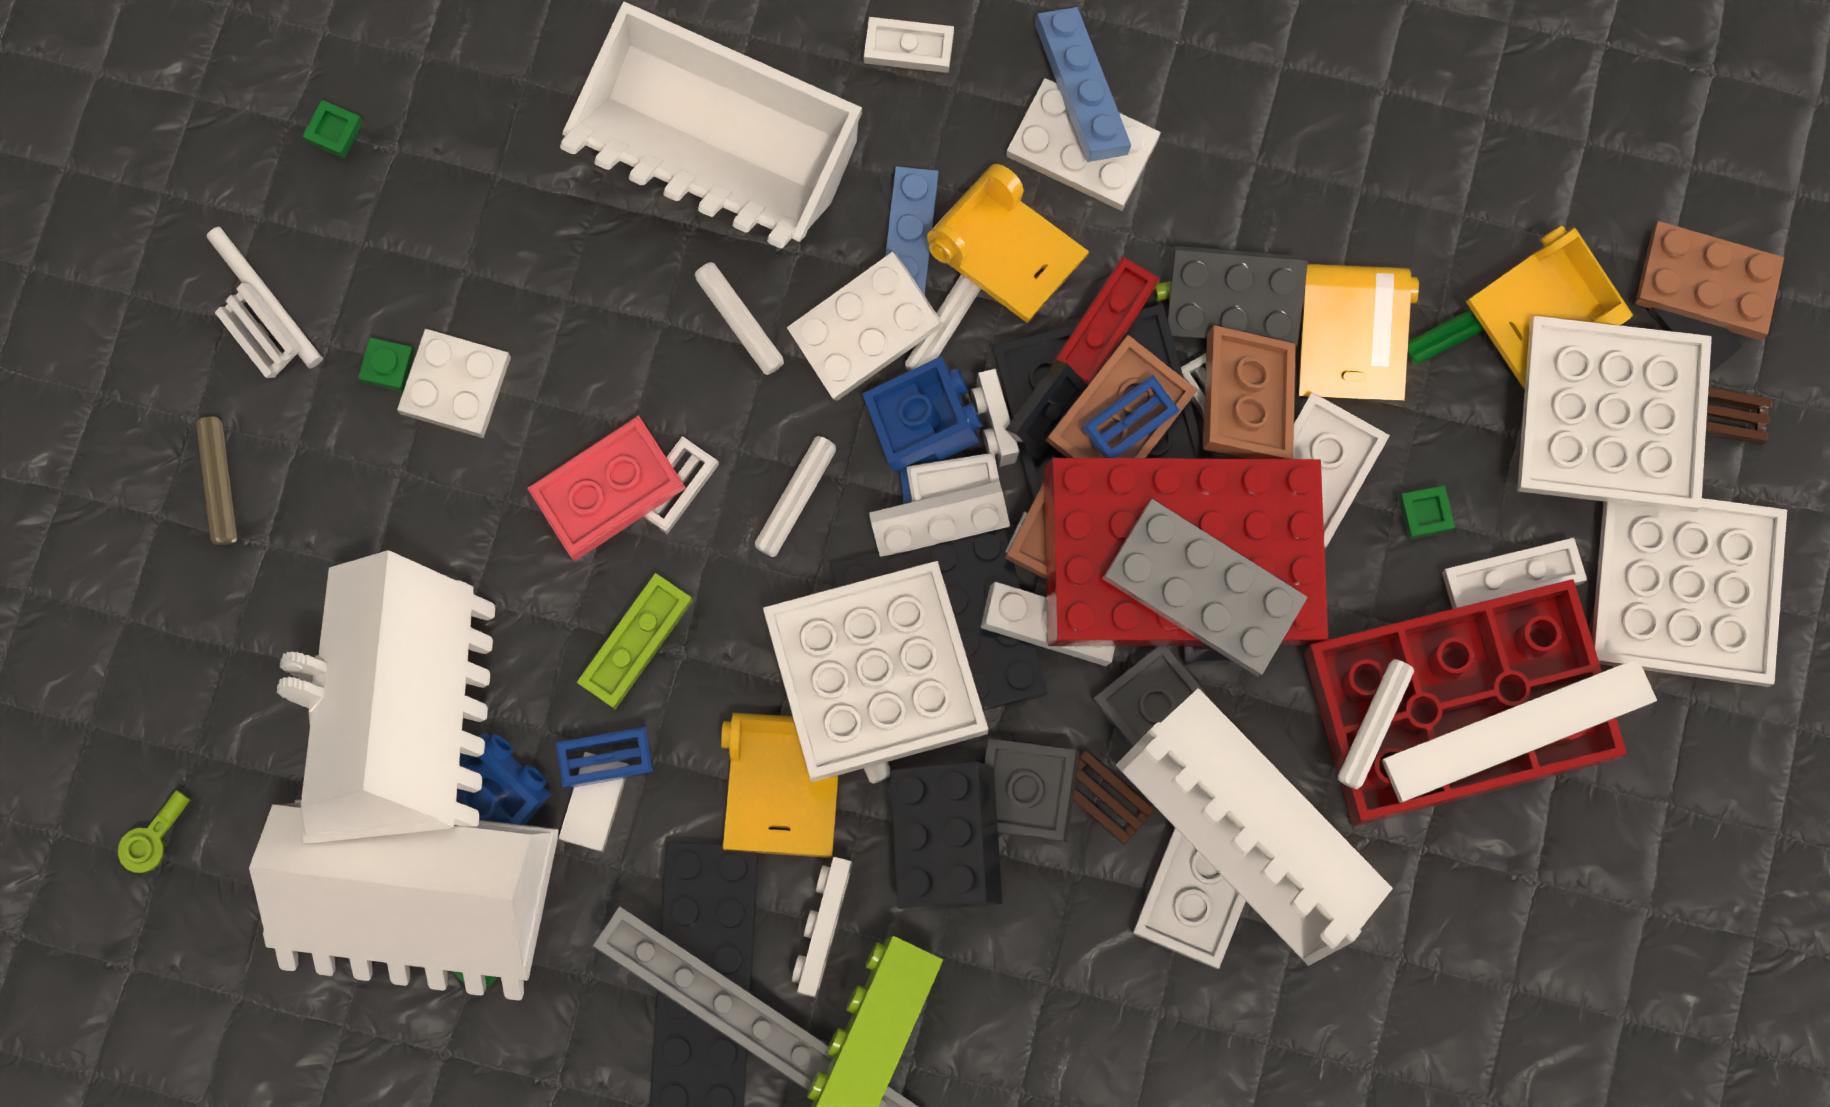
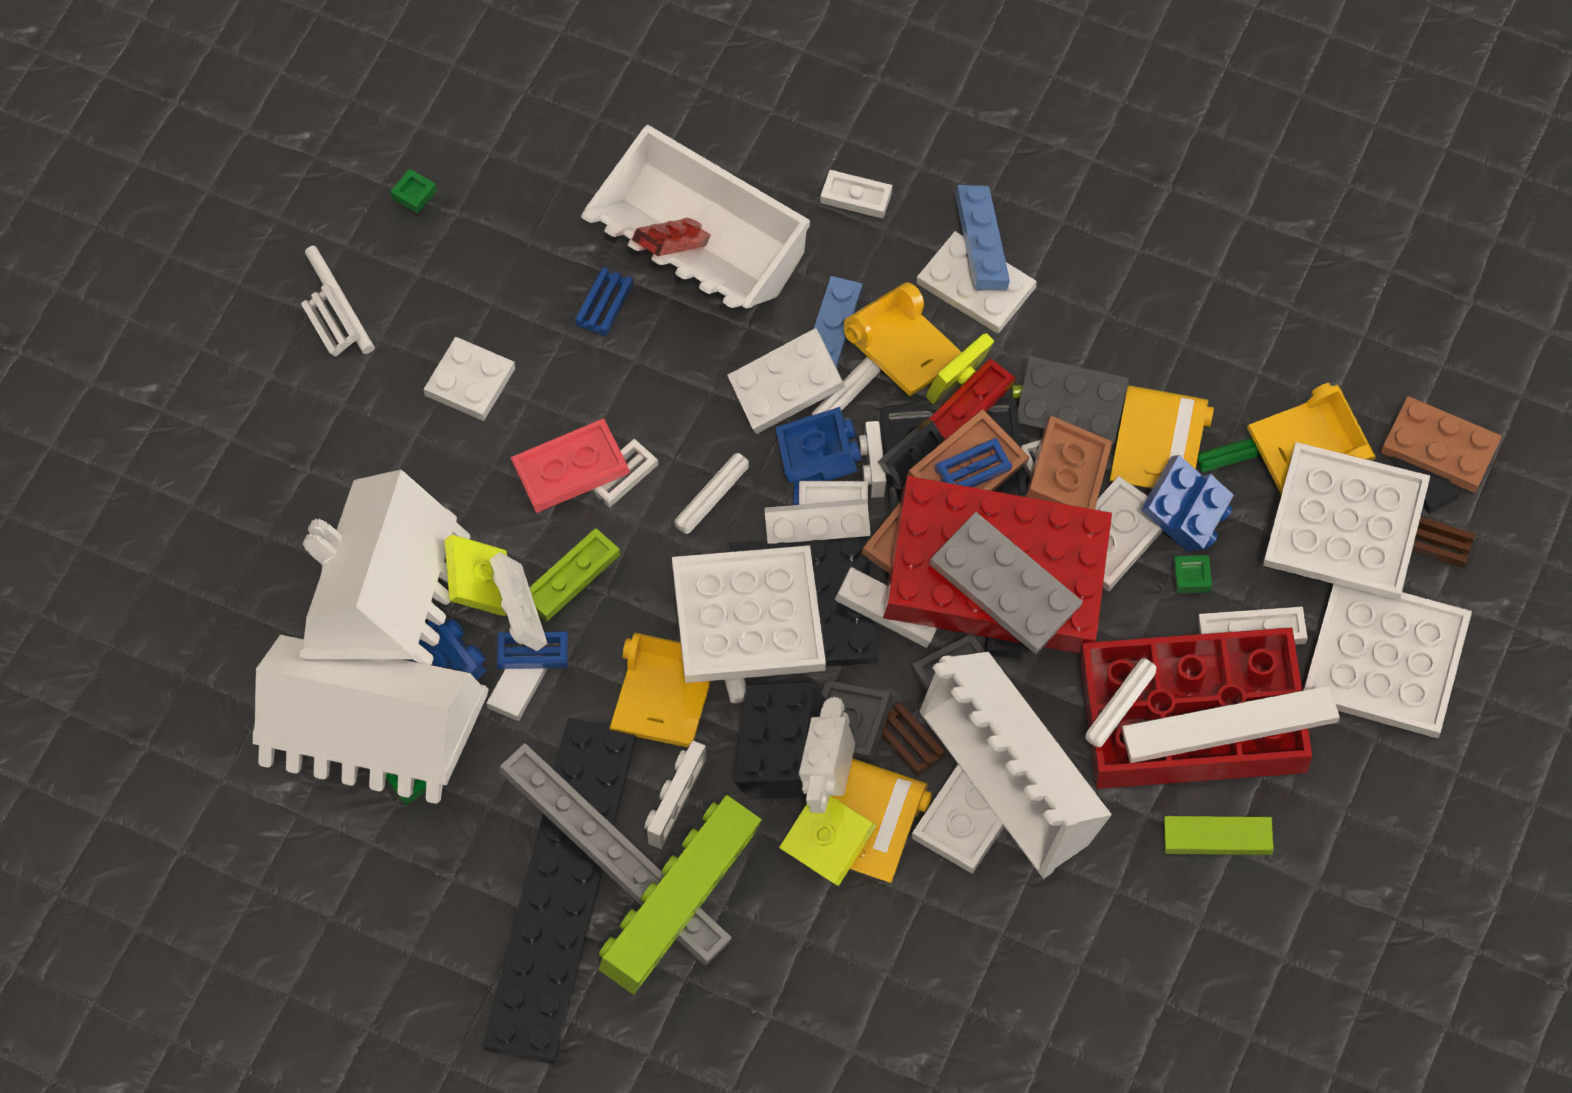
camera: 10 degrees right, 15 degrees down
(144, 848) = (174, 663): lime plate -> none
(216, 481) = (278, 419): dark tan axle -> none
(386, 364) = (421, 358): green plate -> none
(515, 667) = (472, 574): none -> neon yellow plate
(574, 701) = (518, 602): none -> white plate
(617, 212) = (614, 280): none -> blue tile
(682, 154) = (672, 236): none -> clear red plate
(739, 318) = (692, 364): white axle -> none
(1012, 860) = (827, 755): none -> white hinge
(1028, 956) = (828, 839): none -> neon yellow plate
(1076, 913) = (892, 805): none -> yellow door
(1087, 278) = (960, 368): none -> neon yellow plate
(1408, 421) = (1188, 504): none -> plate
(1516, 865) = (1218, 835): none -> lime tile

